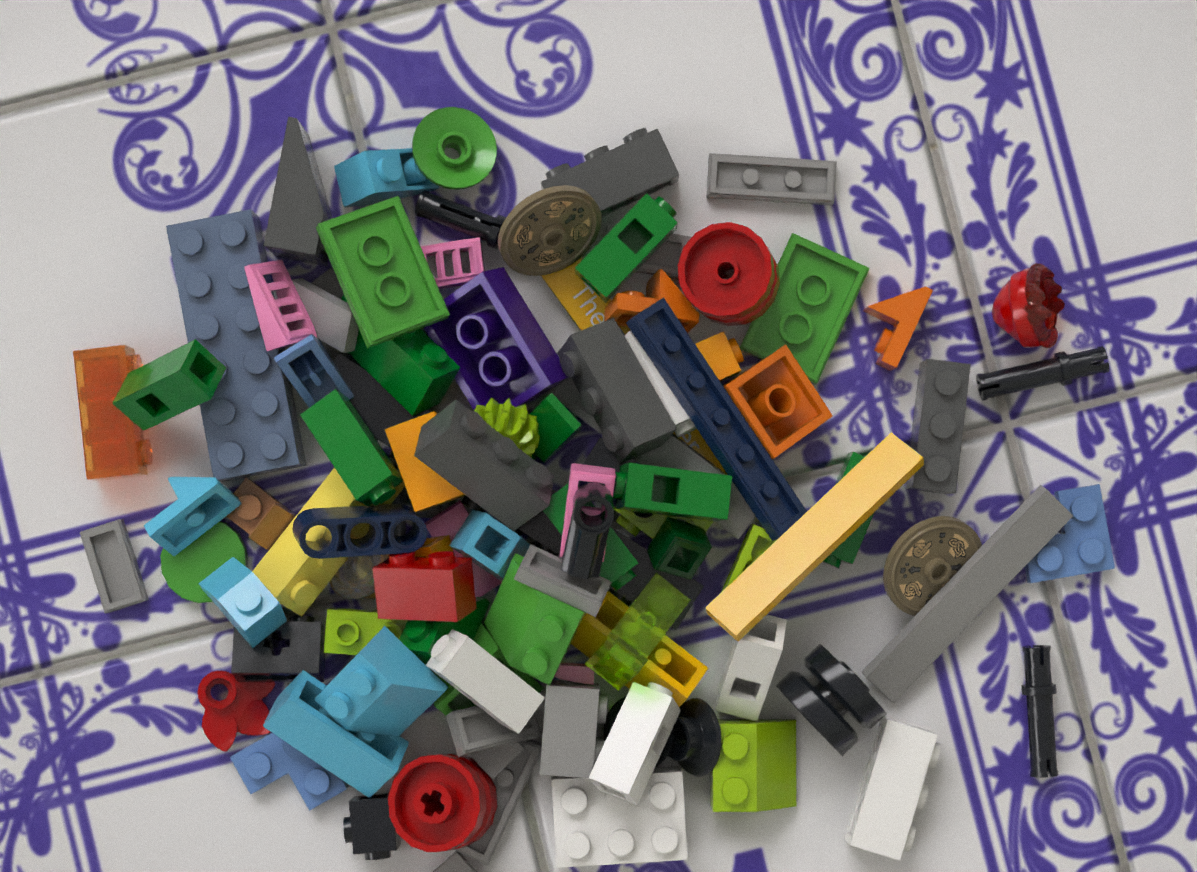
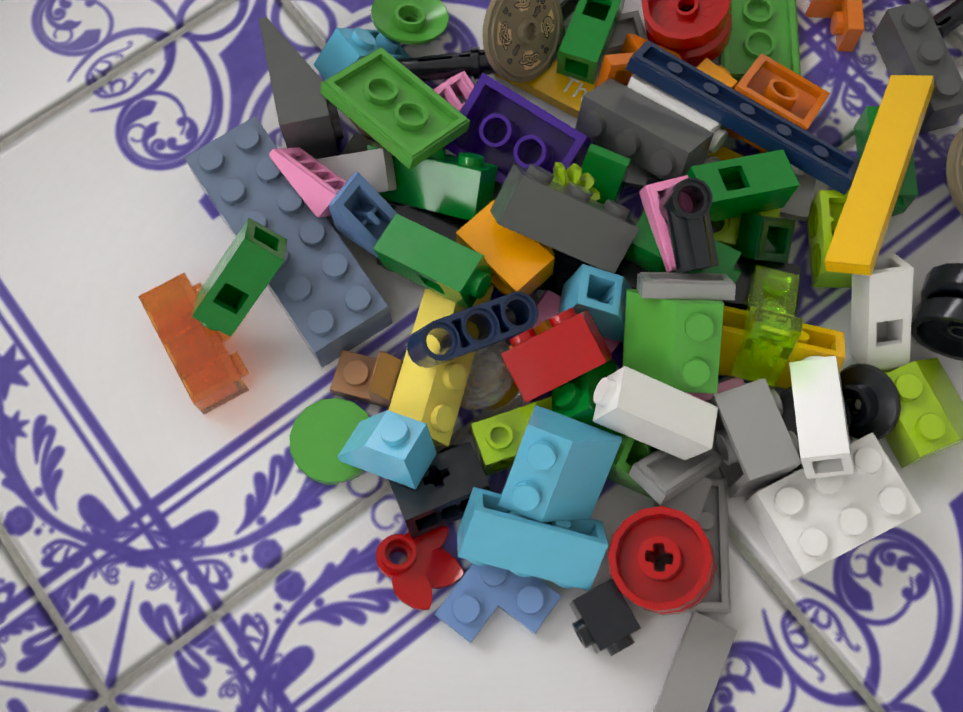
camera: 20 degrees left, 15 degrees down
(114, 566) = (249, 483): light grey tile -> none
(198, 508) = (307, 389): medium azure slope -> none

